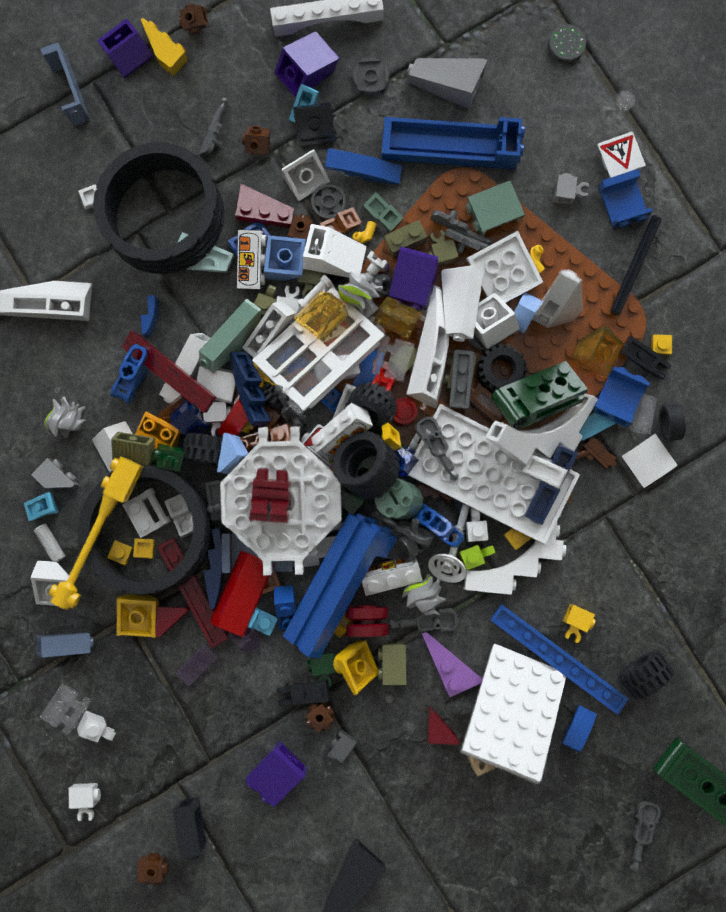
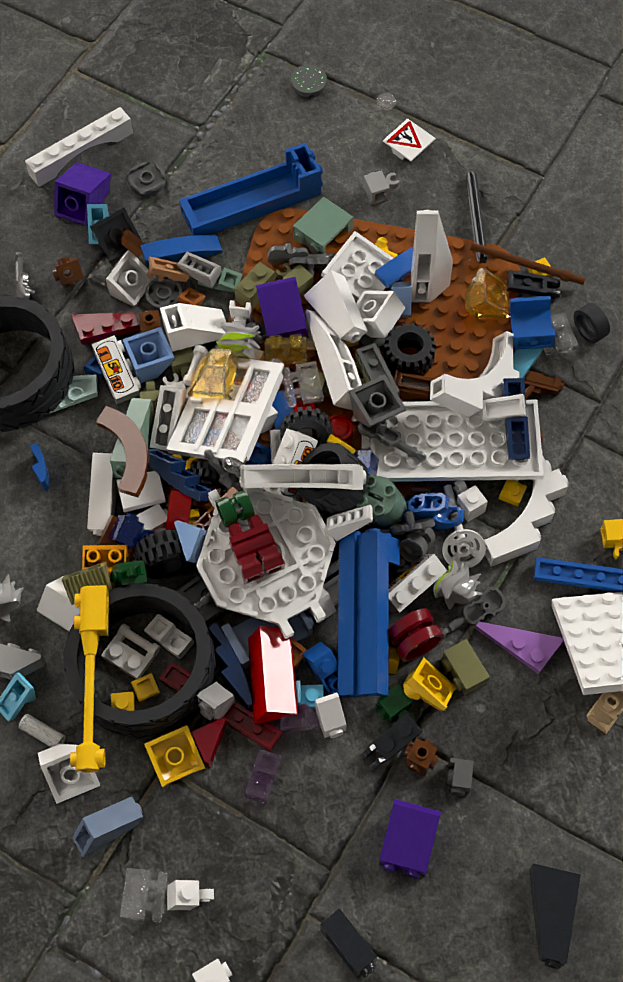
camera: 30 degrees left, 20 degrees down
(128, 381) = (49, 522): blue piece -> none
(171, 373) = (86, 499): dark red tile -> none
(185, 593) = (215, 701): none -> light grey slope
(222, 353) = (135, 448): none -> tile
(265, 451) = (227, 510): none -> dark green wheel
(268, 650) = (330, 715): none -> white slope
(321, 142) = (132, 242): none -> reddish brown slope
(325, 448) = (303, 476): none -> white arch
(341, 183) = (165, 268): none -> medium nougat plate
(350, 503) = (349, 521): none -> white slope
(365, 236) = (216, 300): yellow arm -> none
(373, 193) = (212, 270): none -> light grey slope
(438, 731) = (548, 702): dark red slope -> none
(441, 413) = (375, 402): none -> dark grey slope
(448, 77) = (219, 147): light grey slope -> none
(474, 556) = (485, 524): lime brick -> none
(539, 285) = (395, 269): none -> blue slope
(539, 395) = (459, 348): dark green hinge -> none
(624, 199) = (432, 173): blue panel -> none
(649, 460) = (592, 367): white slope -> none
(676, 361) = (564, 275): none -> reddish brown bar

